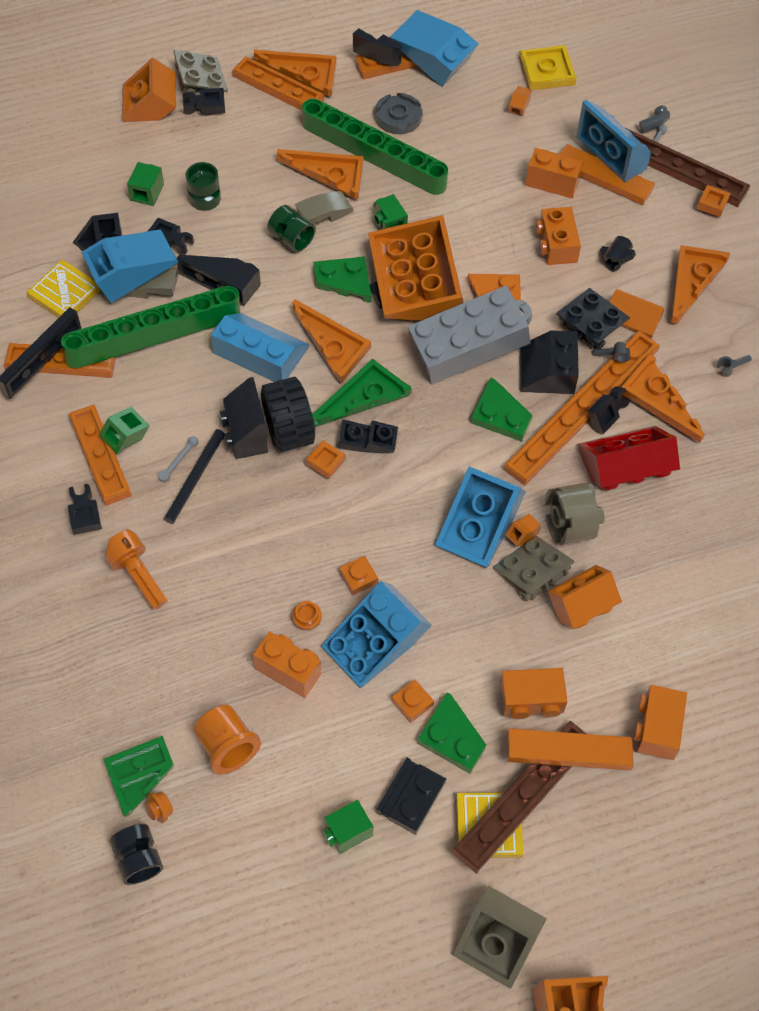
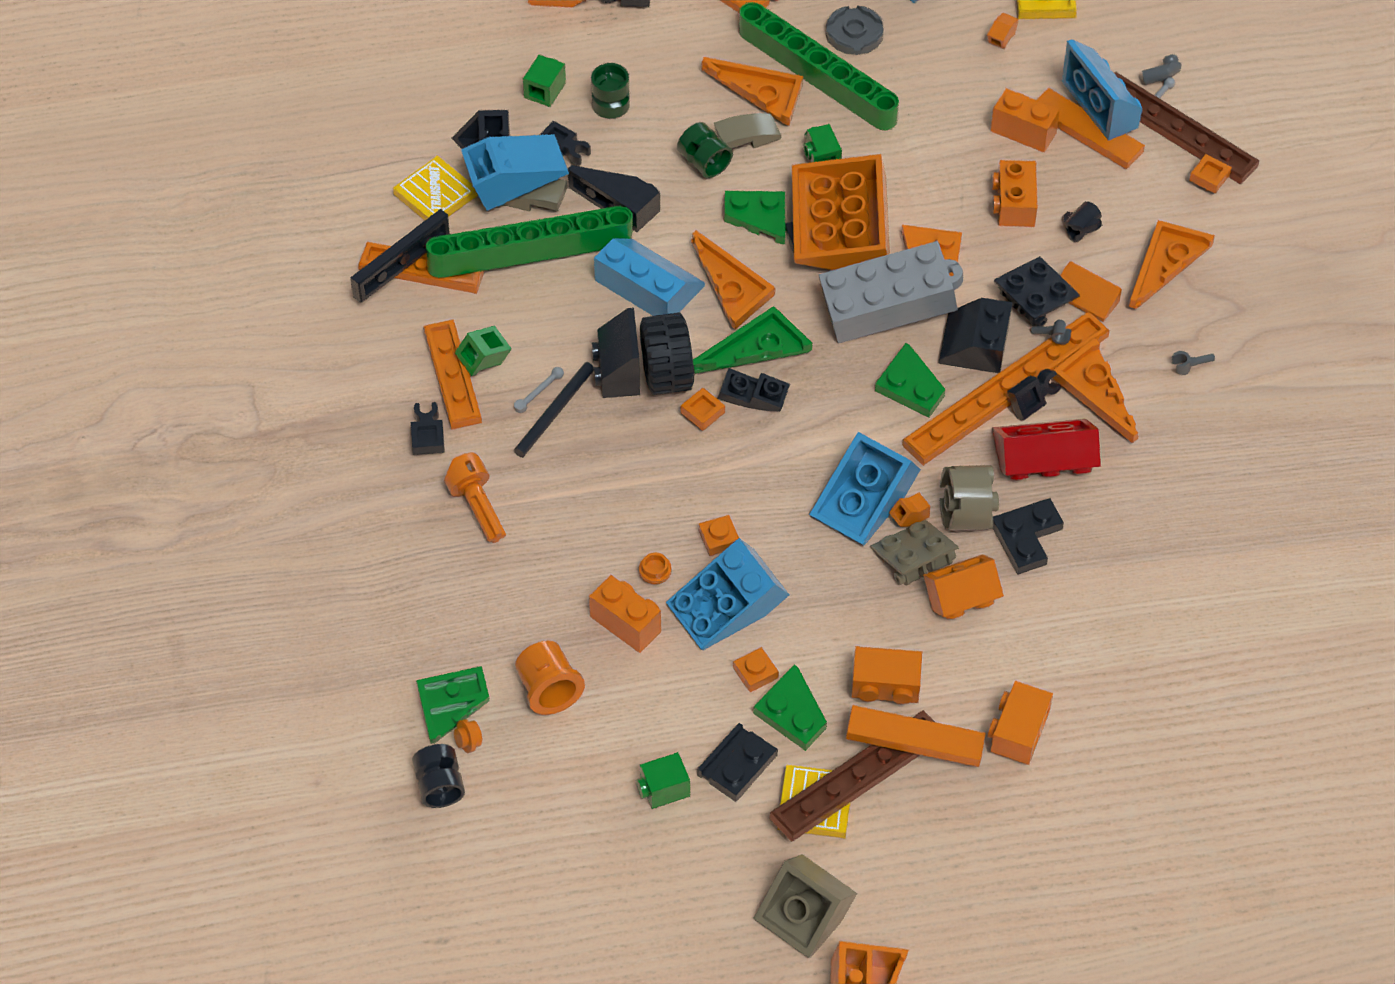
camera: 10 degrees right, 5 degrees down
(620, 538) = (1020, 532): none -> black plate

